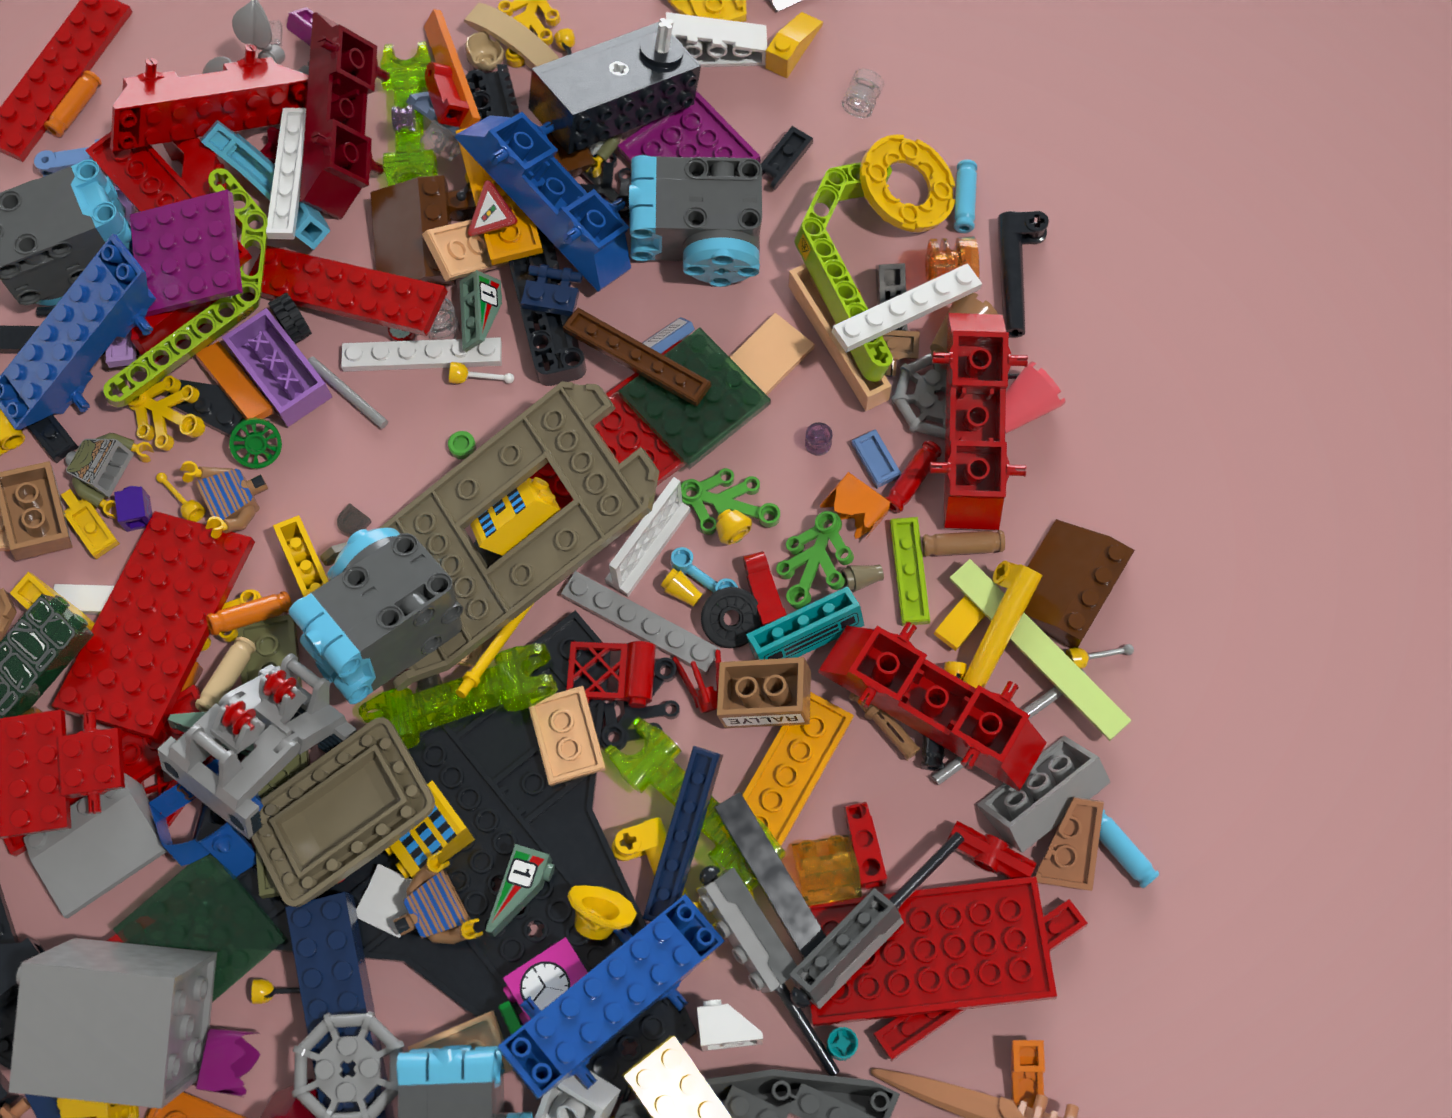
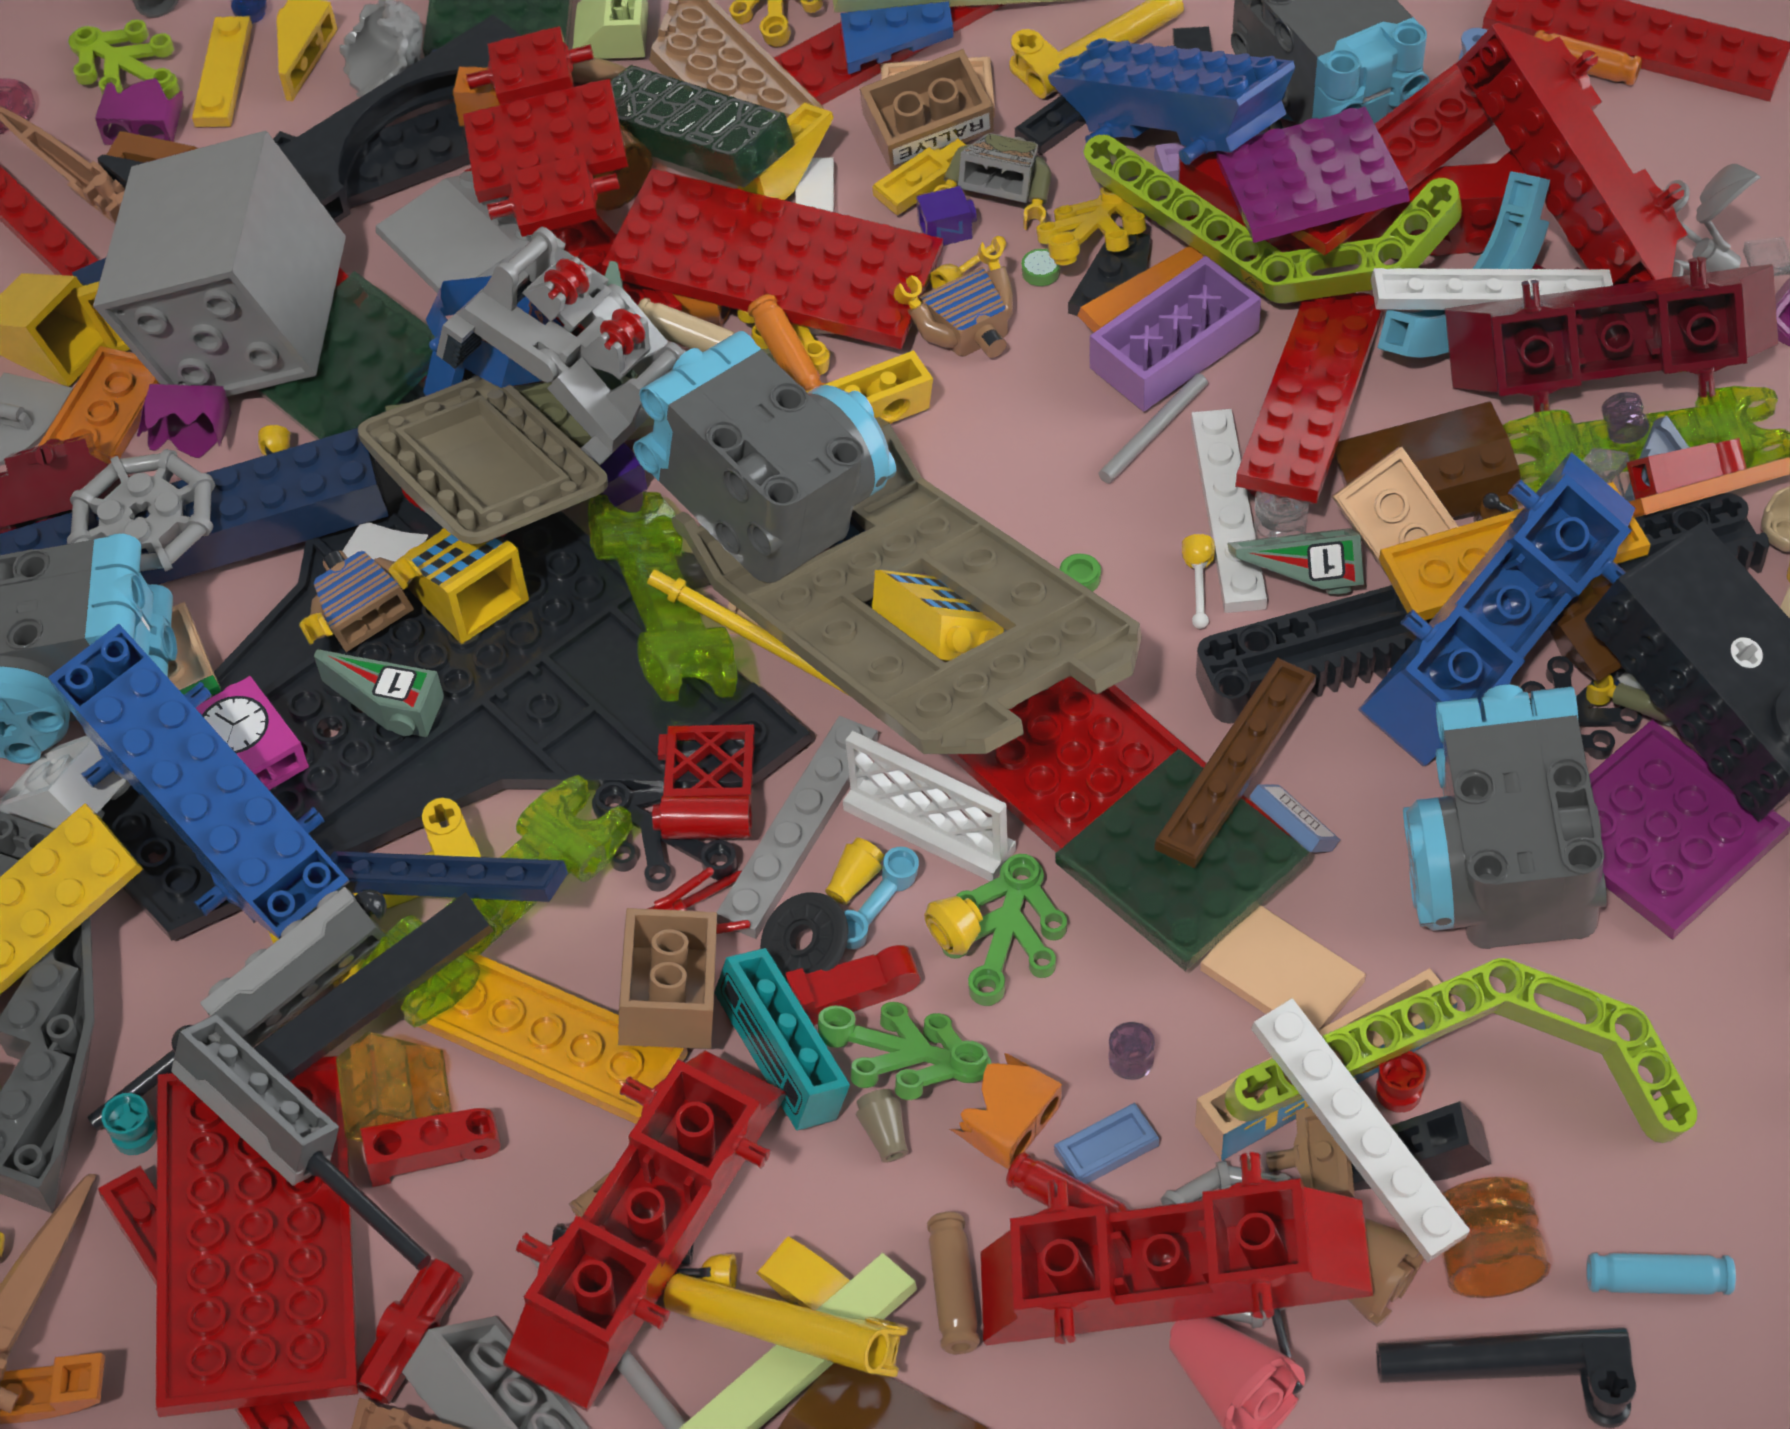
camera: 90 degrees right, 15 degrees down
(190, 450) = (1039, 268): none -> tile
(255, 442) = (1051, 326): green wheel -> none
(290, 317) = (1255, 335): black tyre -> none
(352, 520) = (945, 458): clear smoke tile -> none
(491, 212) = (1451, 533): piece -> none
(549, 297) = (1330, 640): dark blue plate -> none
(567, 736) = (605, 731): light nougat tile -> none
(600, 911) = (340, 781): yellow hat -> none
(725, 1028) = (162, 959): white slope -> none
(786, 155) = (1684, 971): black hinge -> none
(909, 571) = (900, 1203): lime tile -> none
(928, 162) = (1721, 1141): yellow plate -> none

